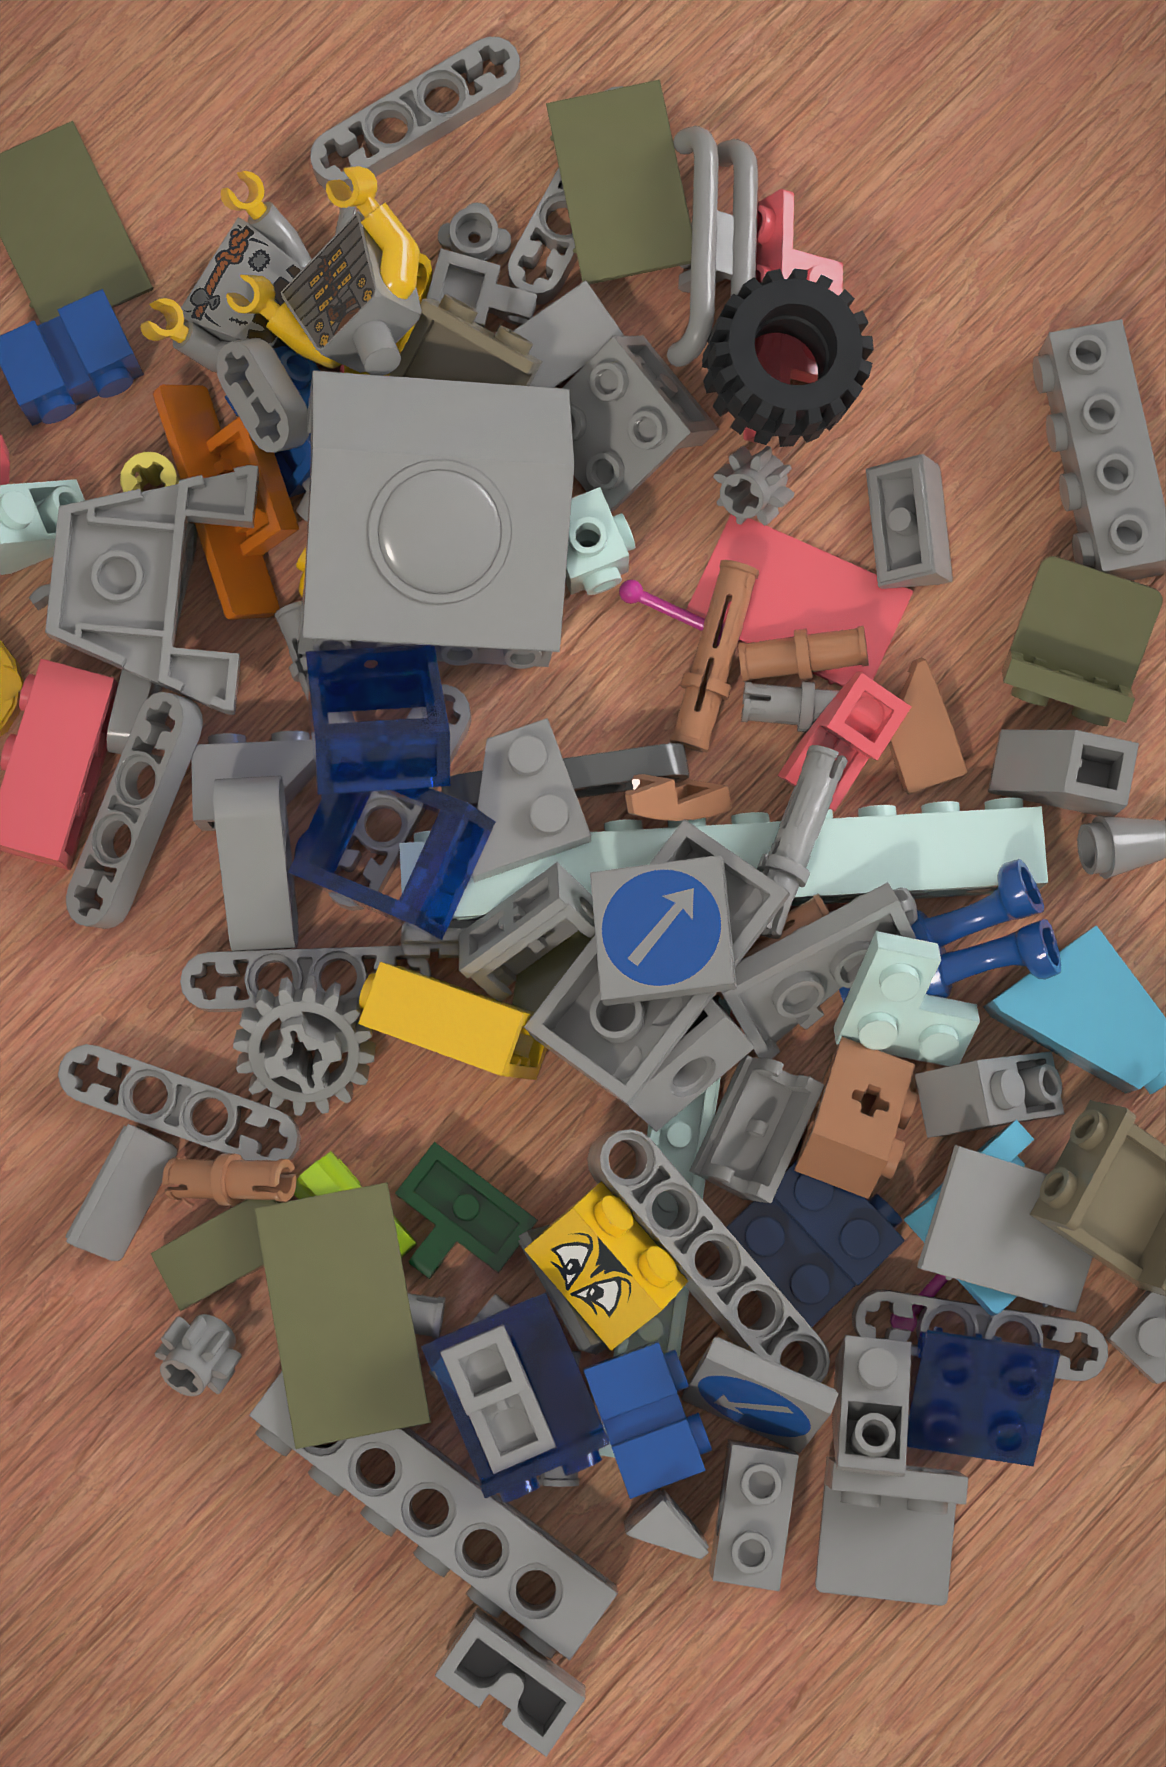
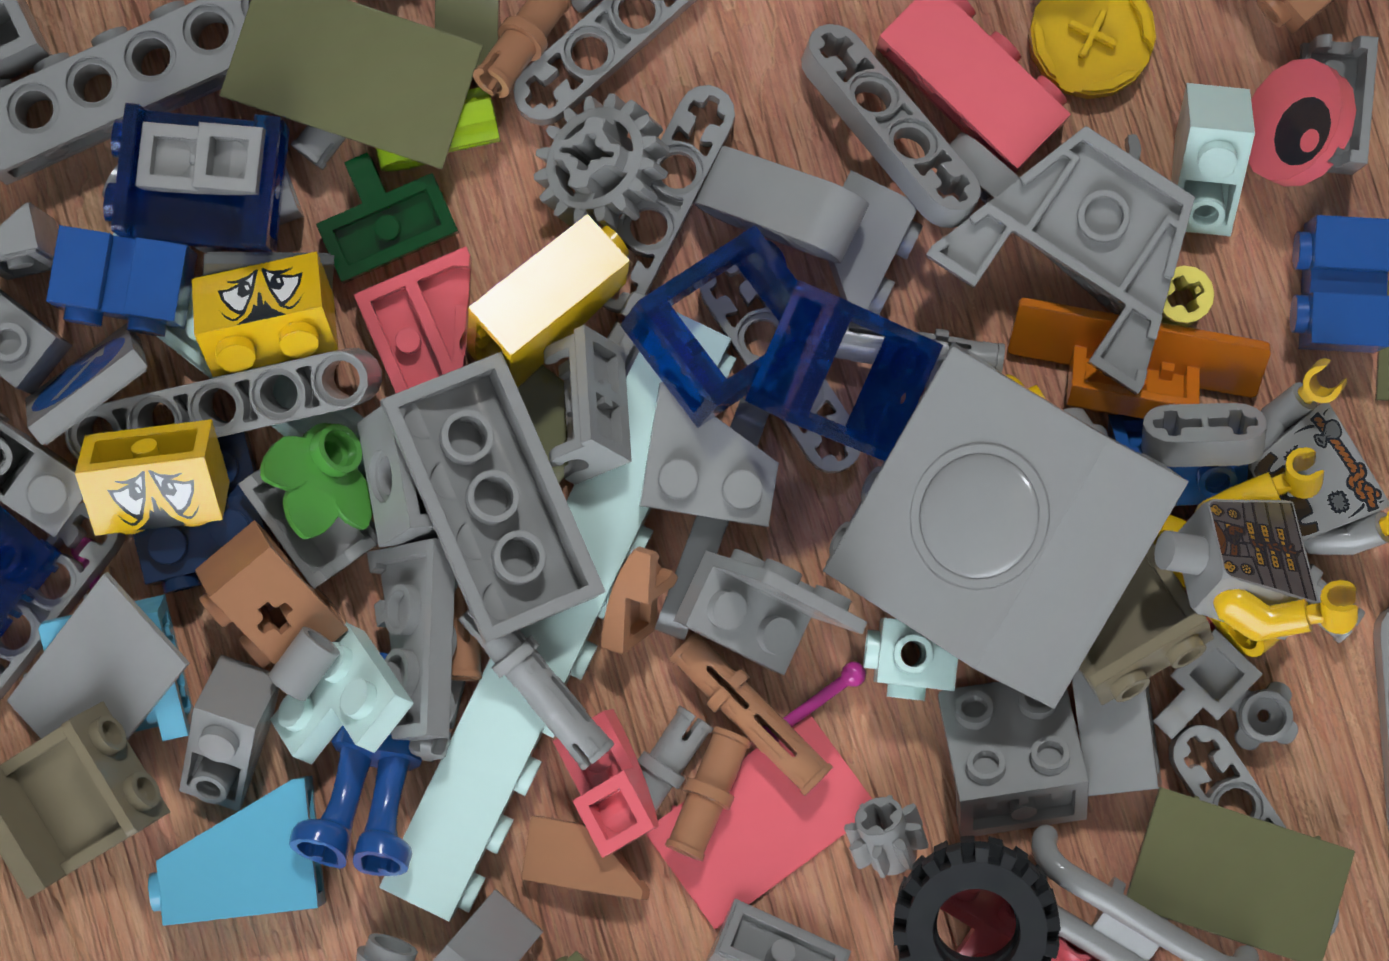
camera: 120 degrees right, 5 degrees up
(538, 1127) = (420, 319): none -> coral wing
(627, 692) = (759, 607): none -> light grey bracket
(663, 930) = (513, 514): tile -> none
(725, 1132) = (319, 485): none -> bright green plate
(809, 1280) = (153, 477): none -> yellow brick
(895, 1053) = (304, 663): none -> light grey hinge

